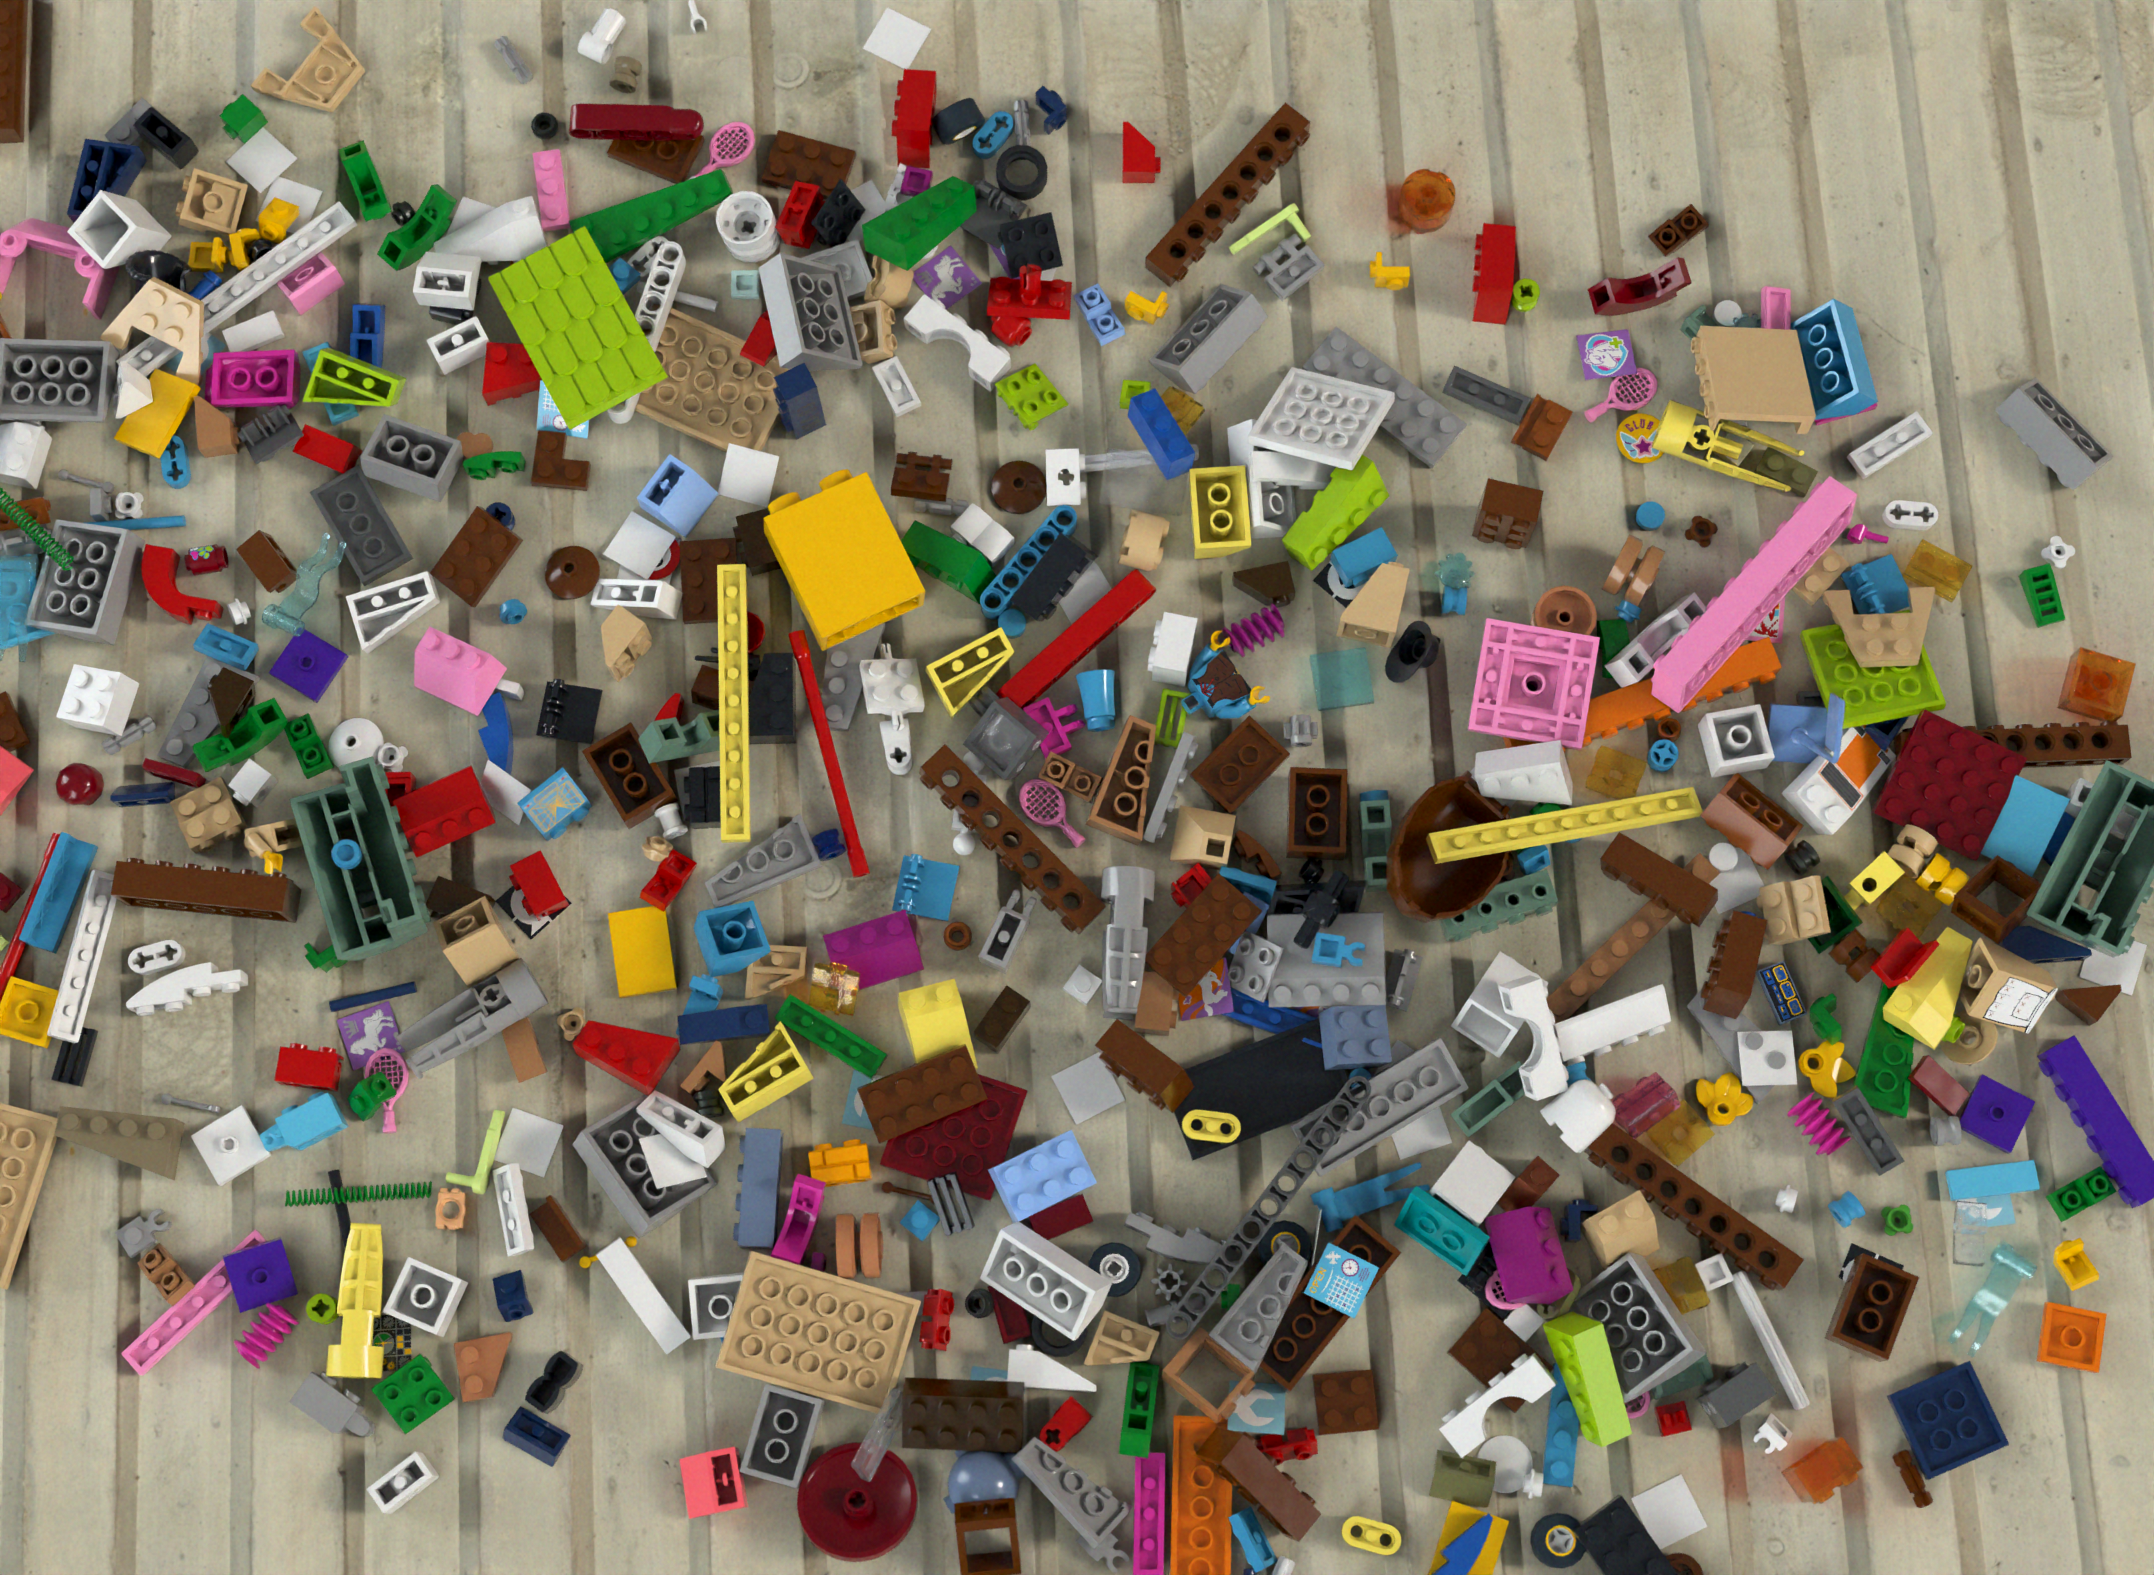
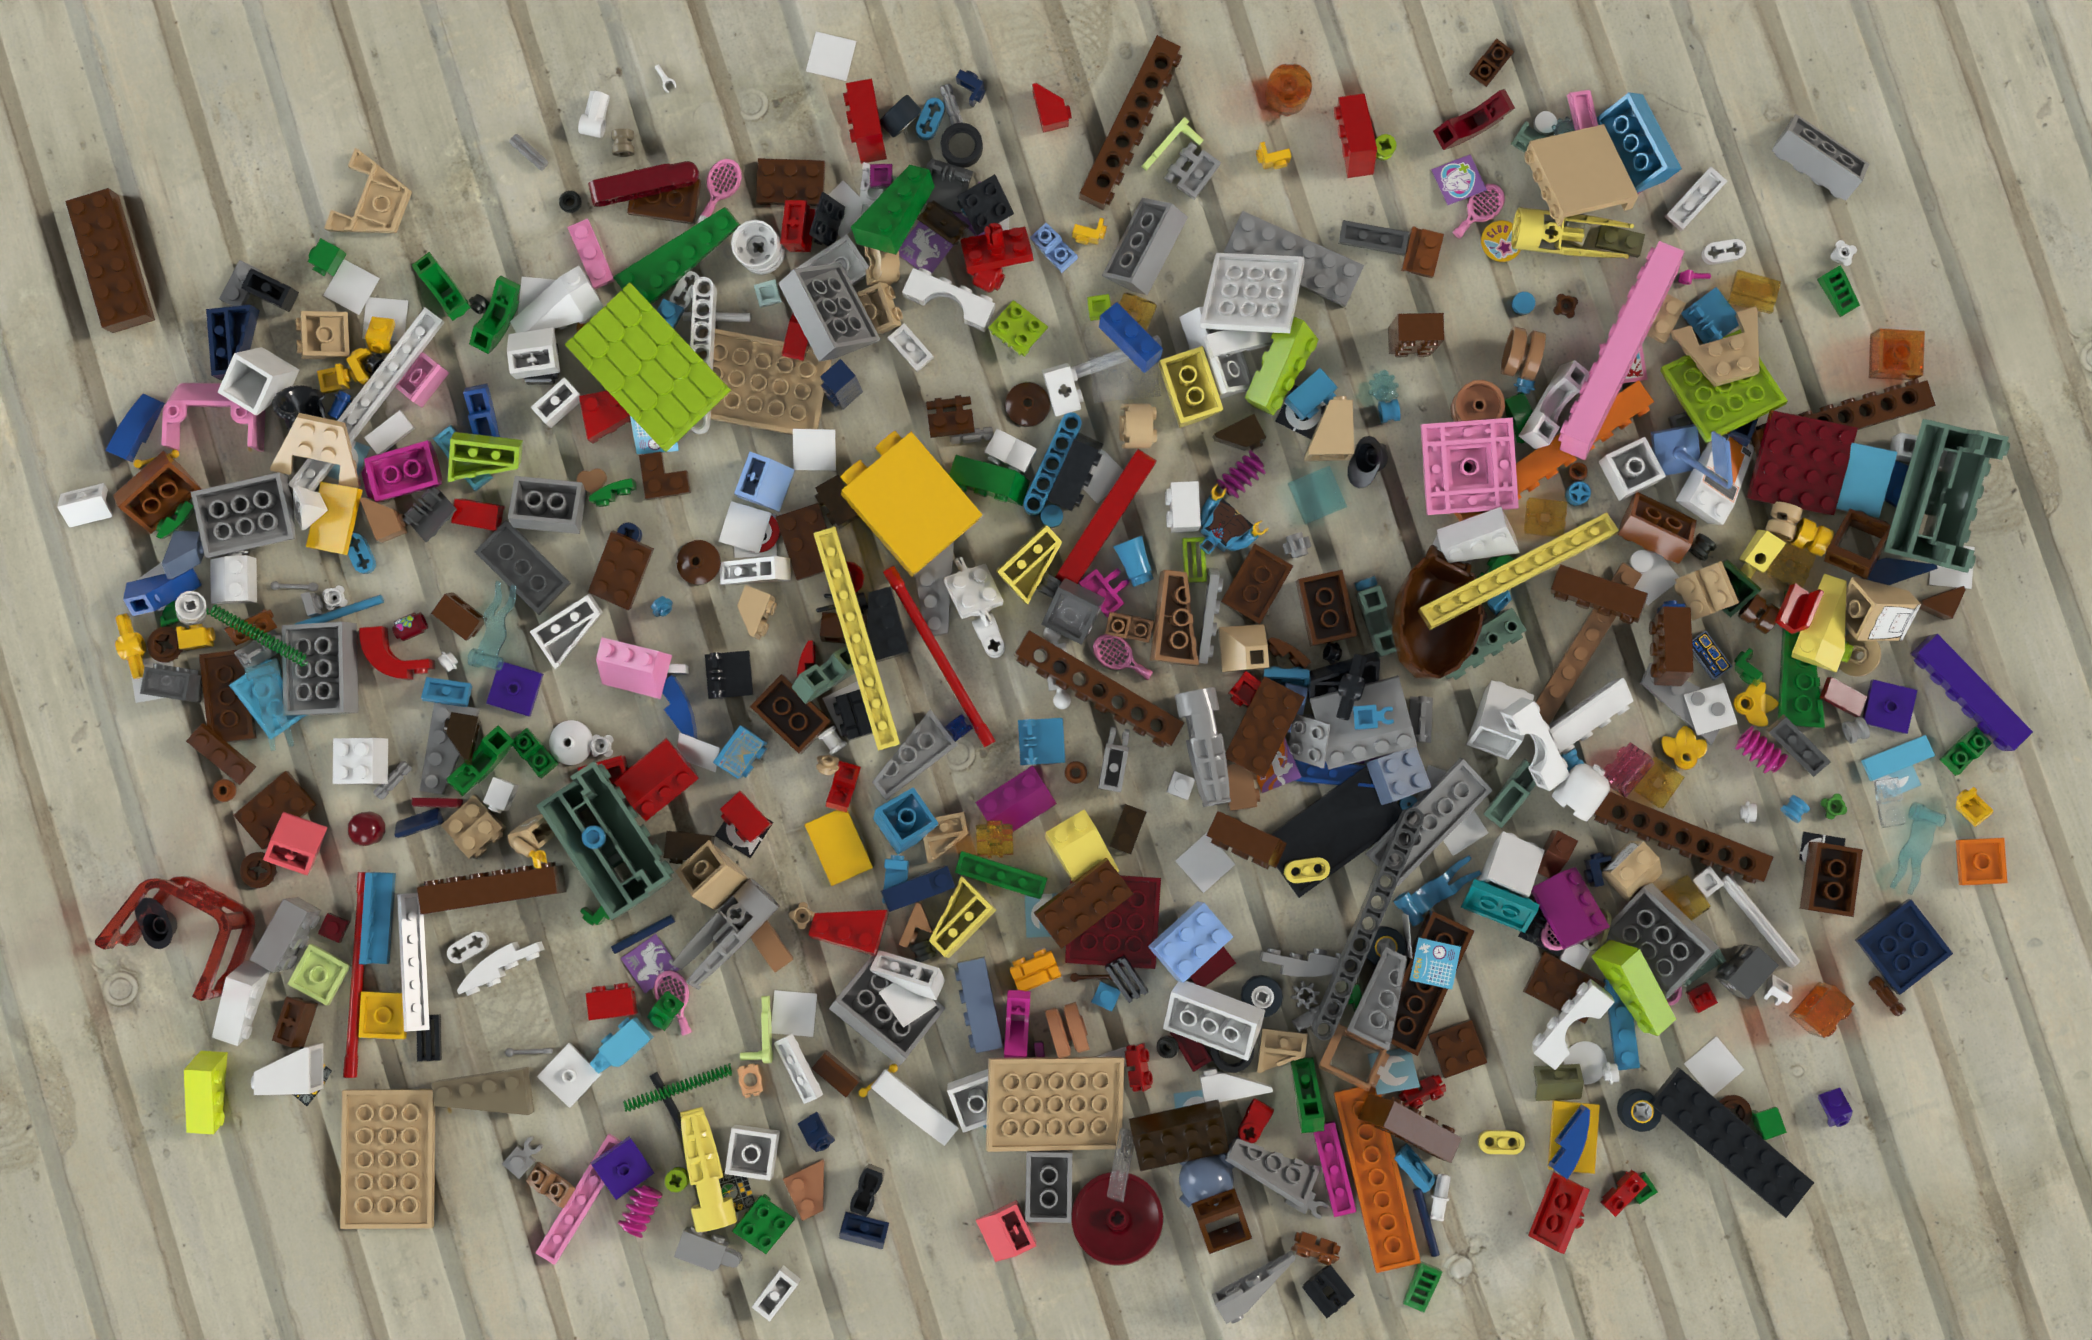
camera: 15 degrees left, 10 degrees up
(975, 253) = (943, 222): none -> dark brown hinge

